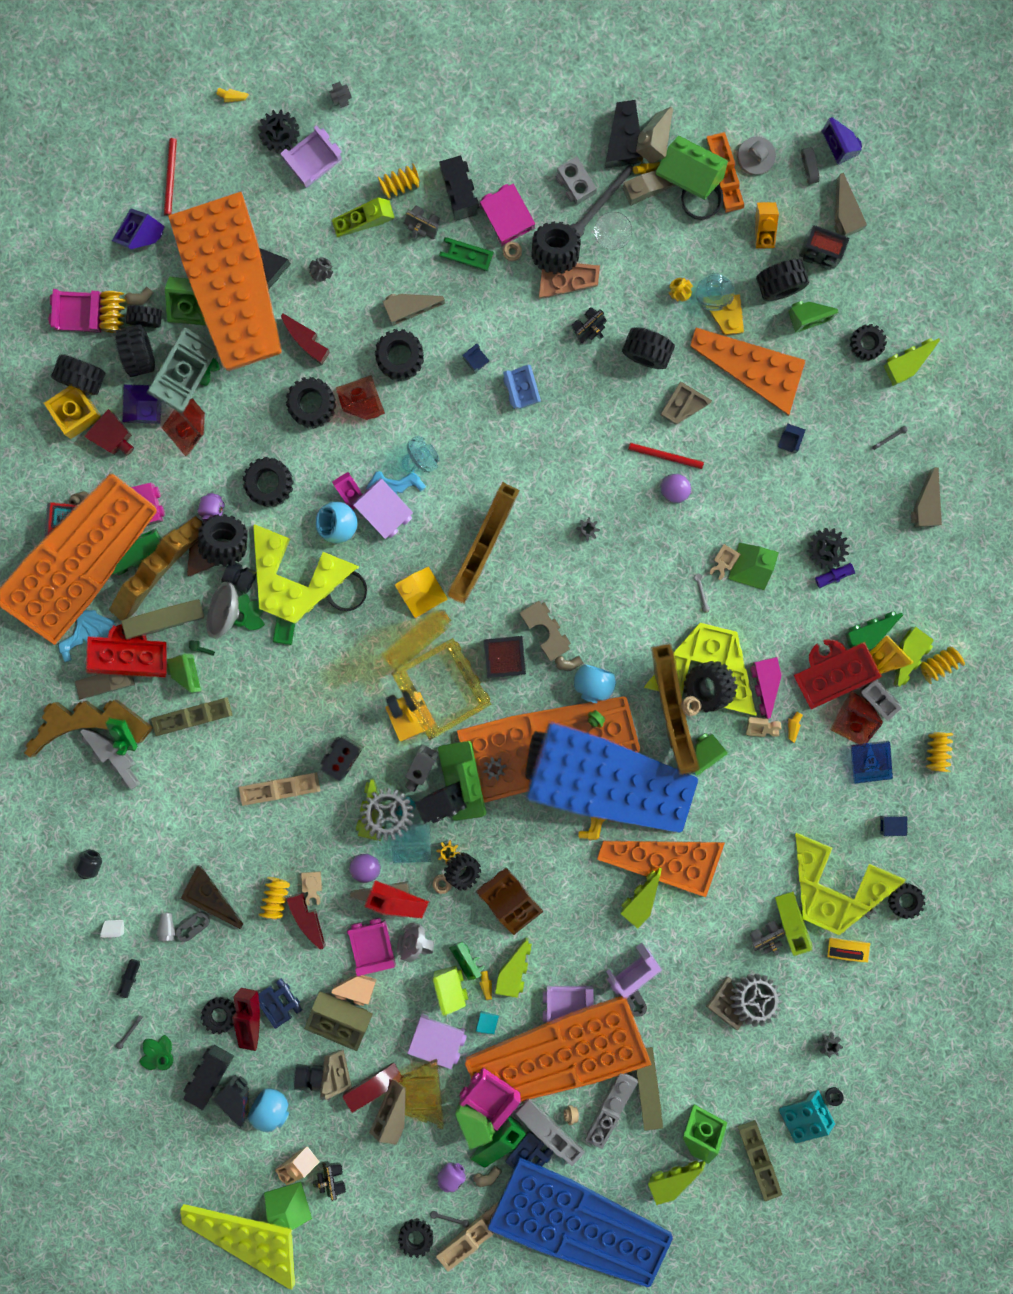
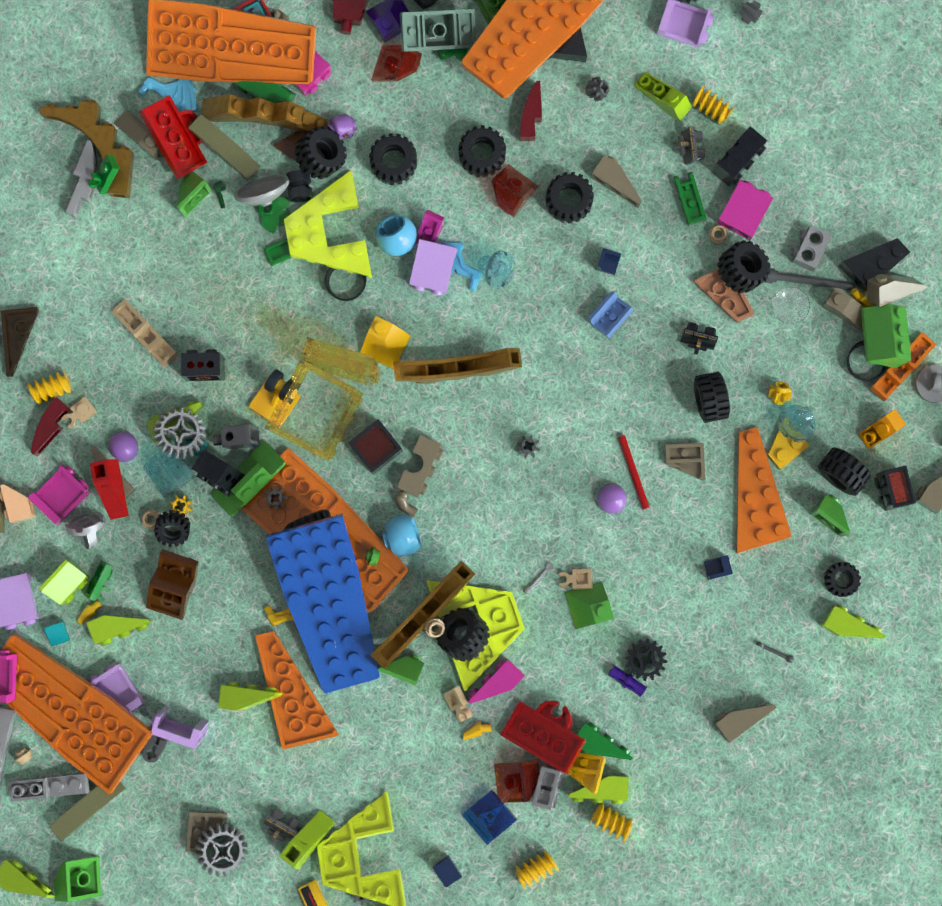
camera: 60 degrees right, 5 degrees down
(191, 716) = (158, 222): olive slope -> none

